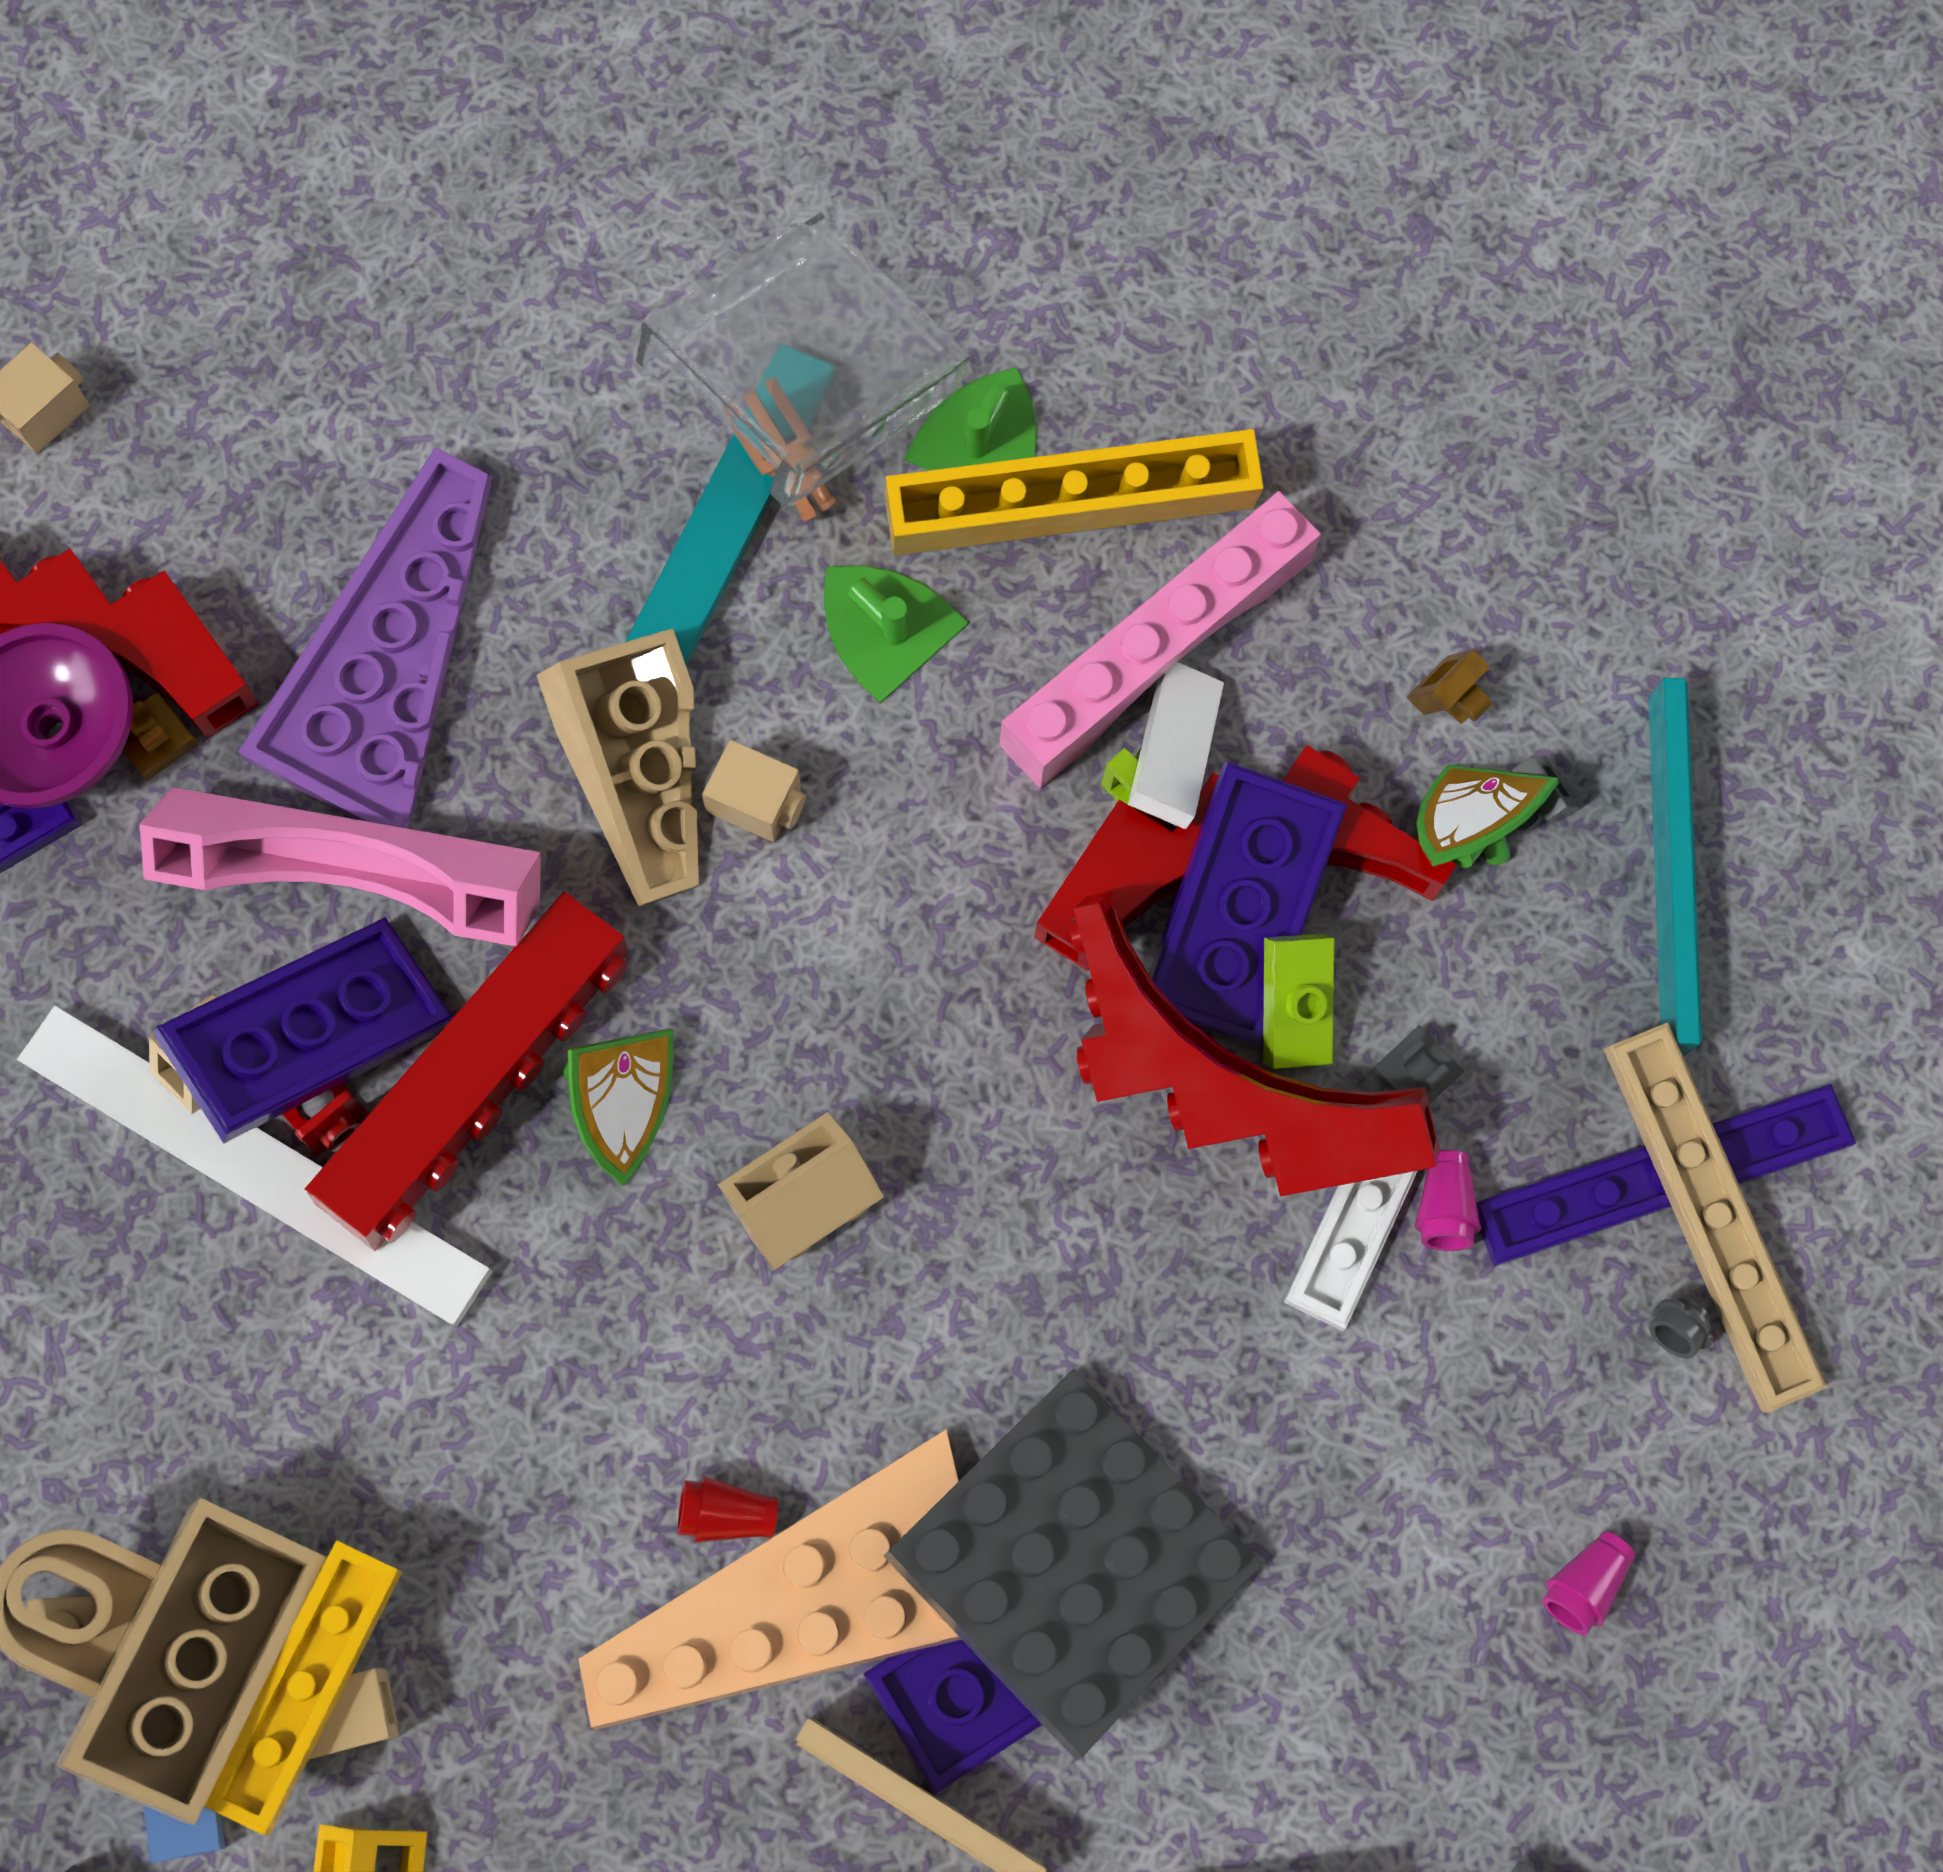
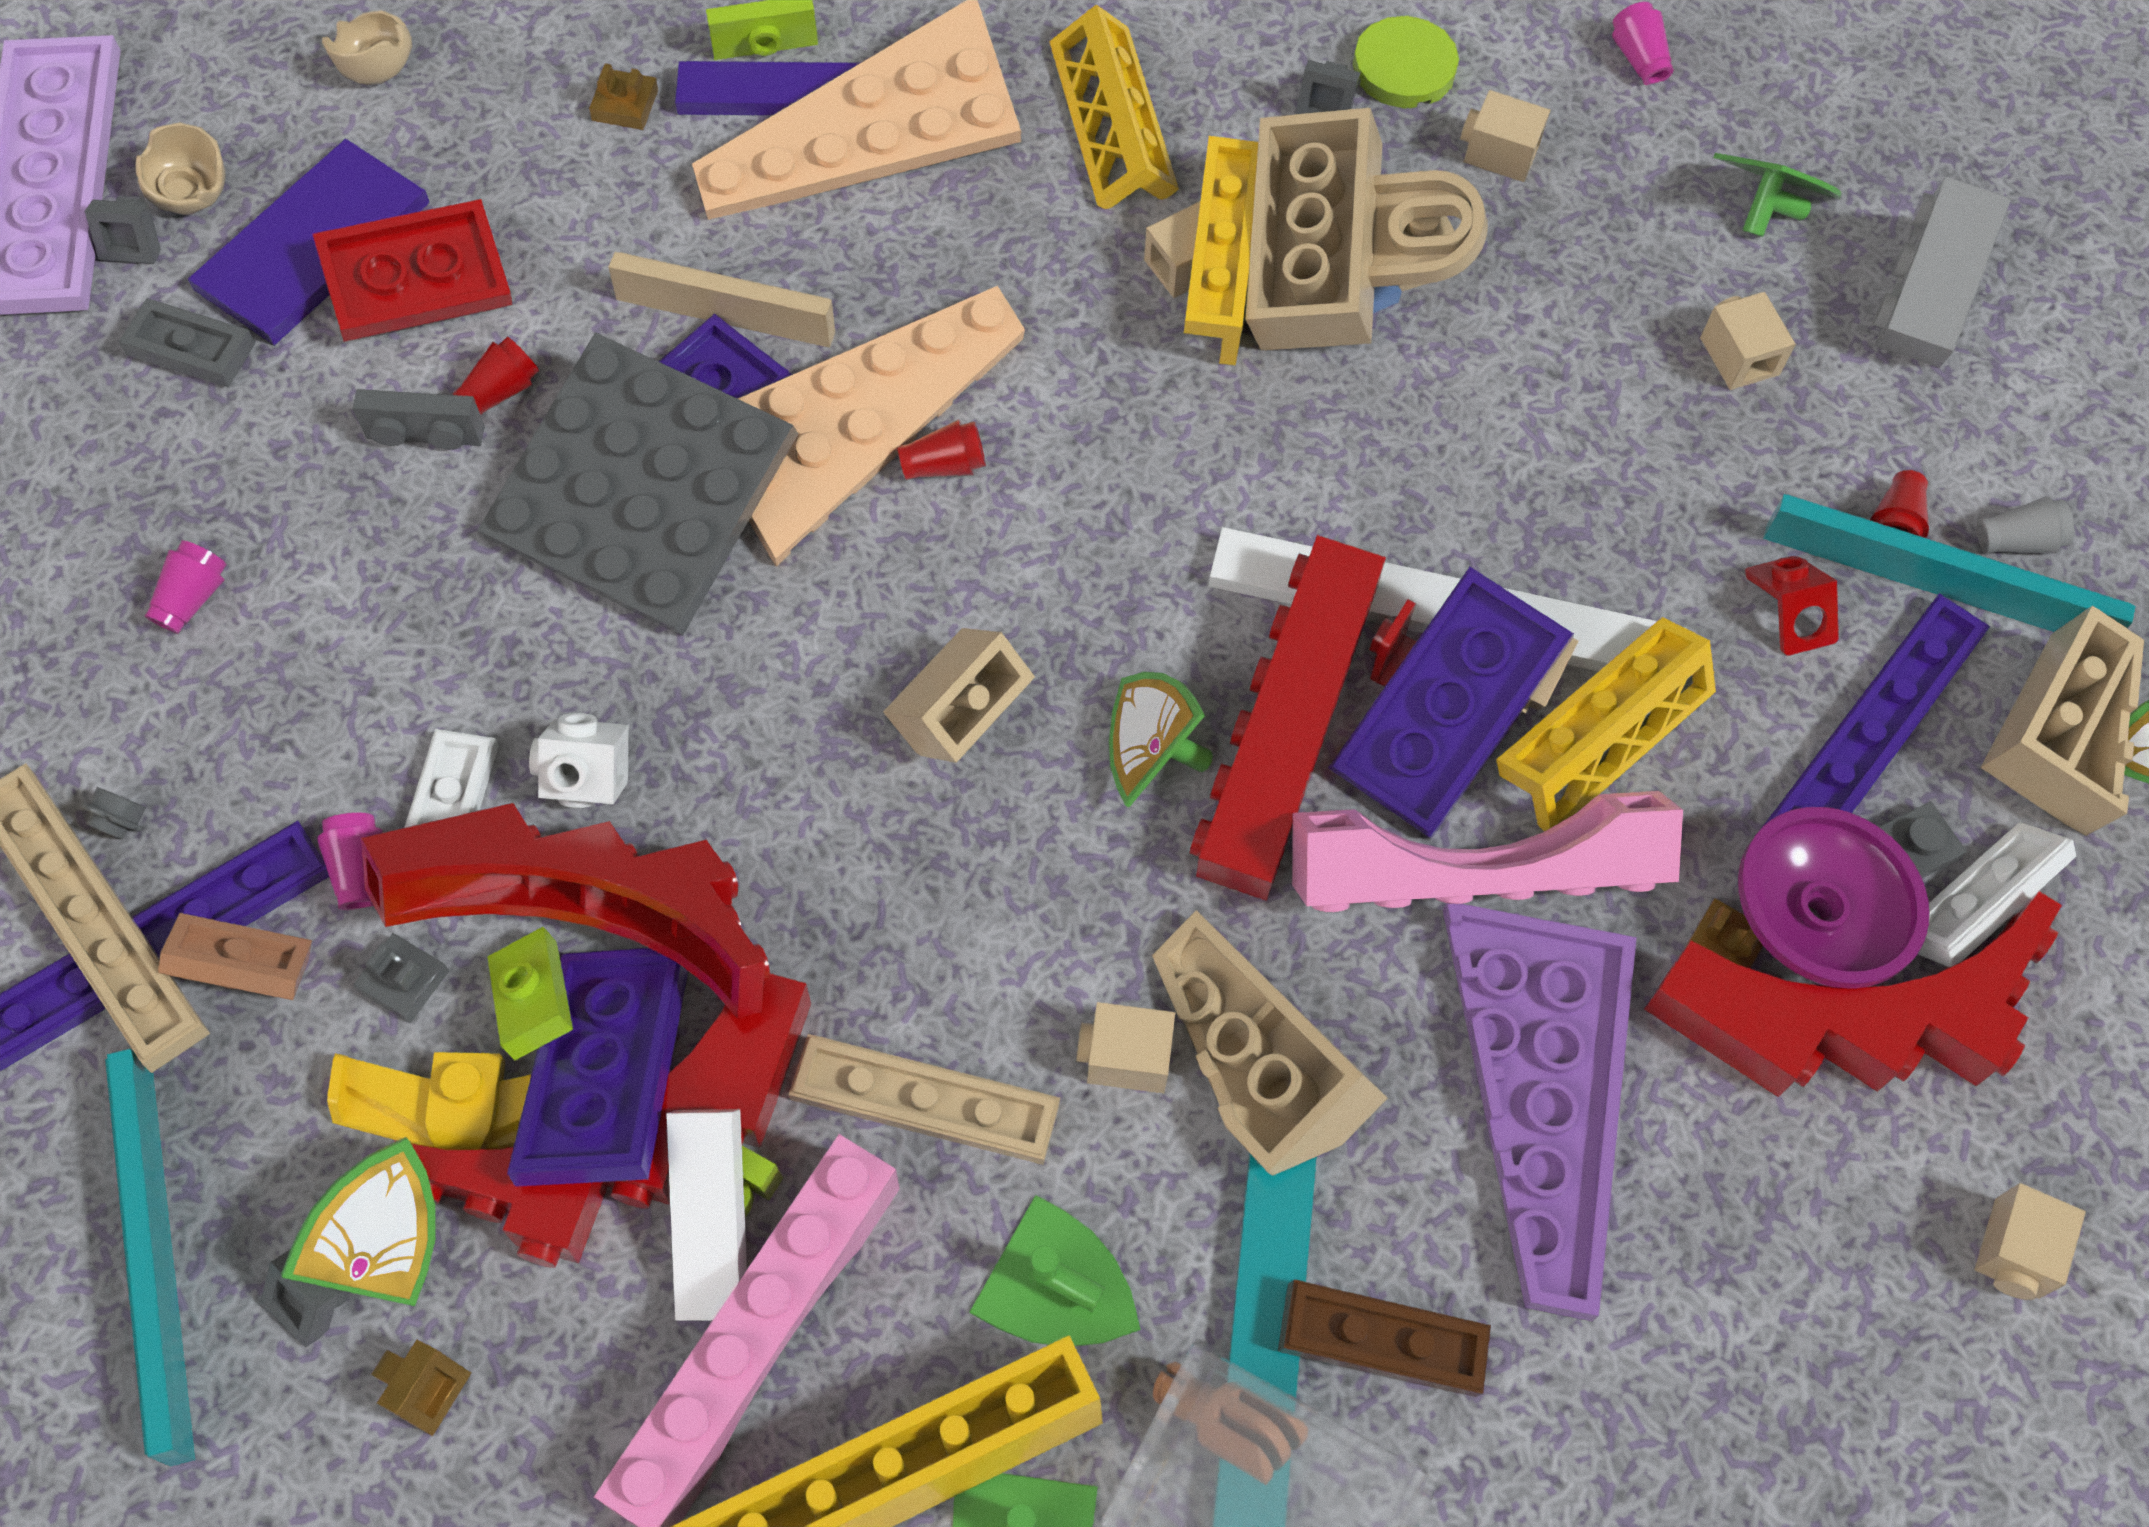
camera: 165 degrees right, 10 degrees down
(150, 977) = (1610, 713): none -> yellow fence
(623, 489) = (1384, 1338): none -> reddish brown tile
(954, 812) = (925, 1099): none -> tan tile
(1203, 1232) = (580, 760): none -> white brick
(1207, 1770) = (498, 375): none -> red cone
(1333, 1738) = (419, 417): none -> dark grey plate
(1383, 925) = (456, 1109): none -> yellow plate
(1572, 1121) = (235, 956): none -> nougat plate

